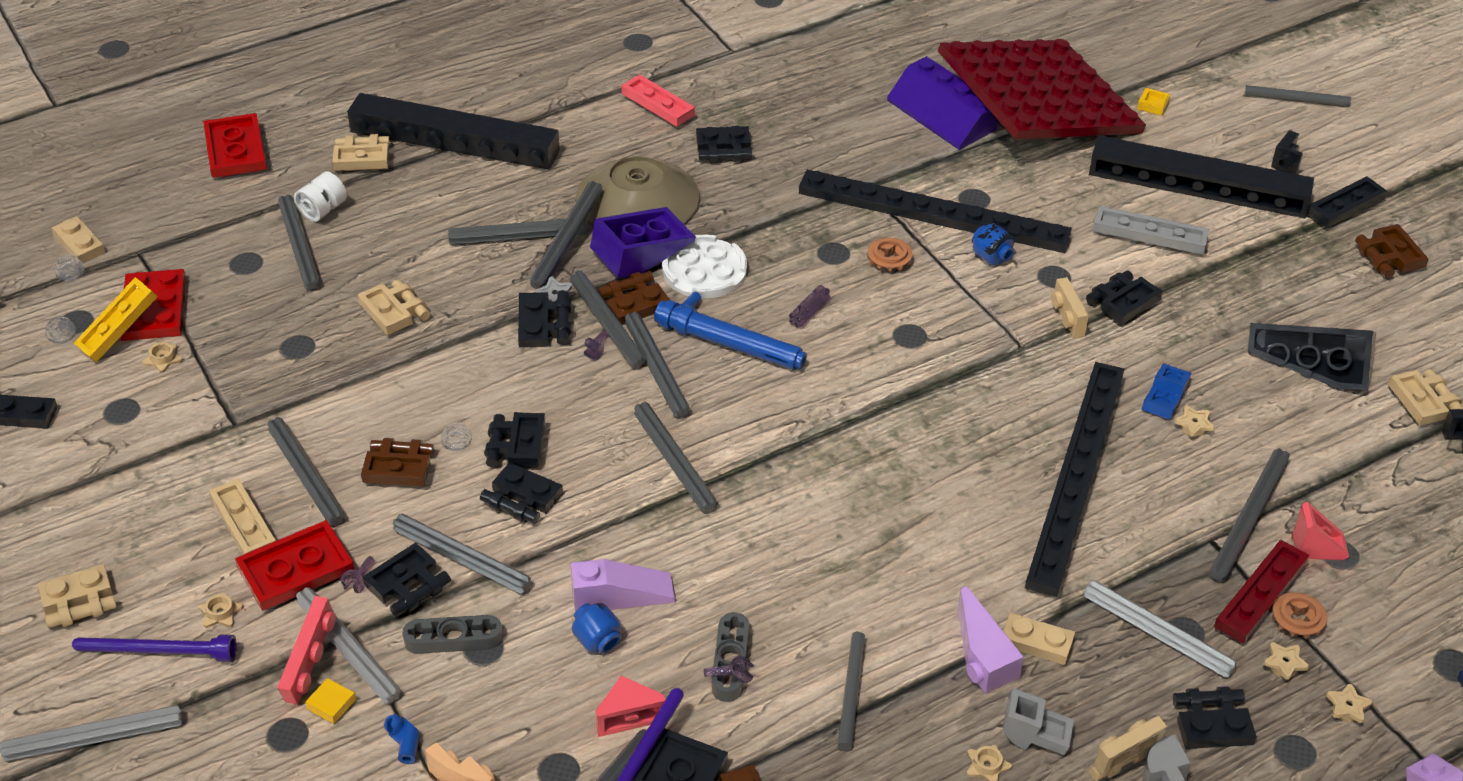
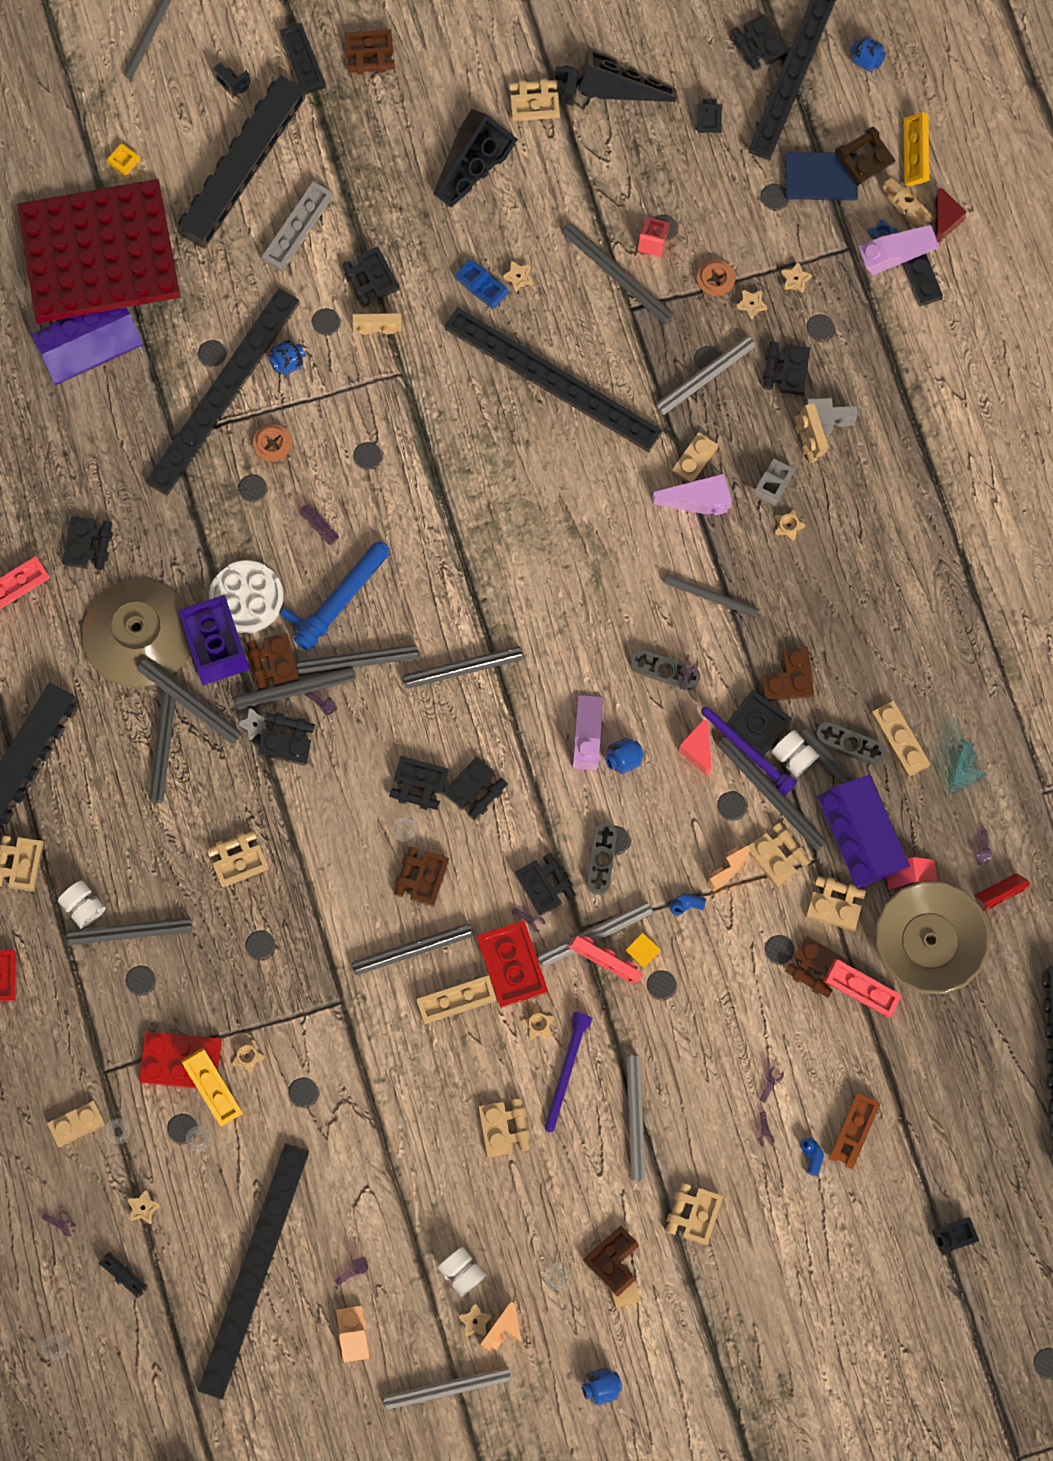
camera: 80 degrees left, 30 degrees up
(462, 553) = (525, 841): axle -> none
(1261, 591) = (691, 294): dark red plate -> none

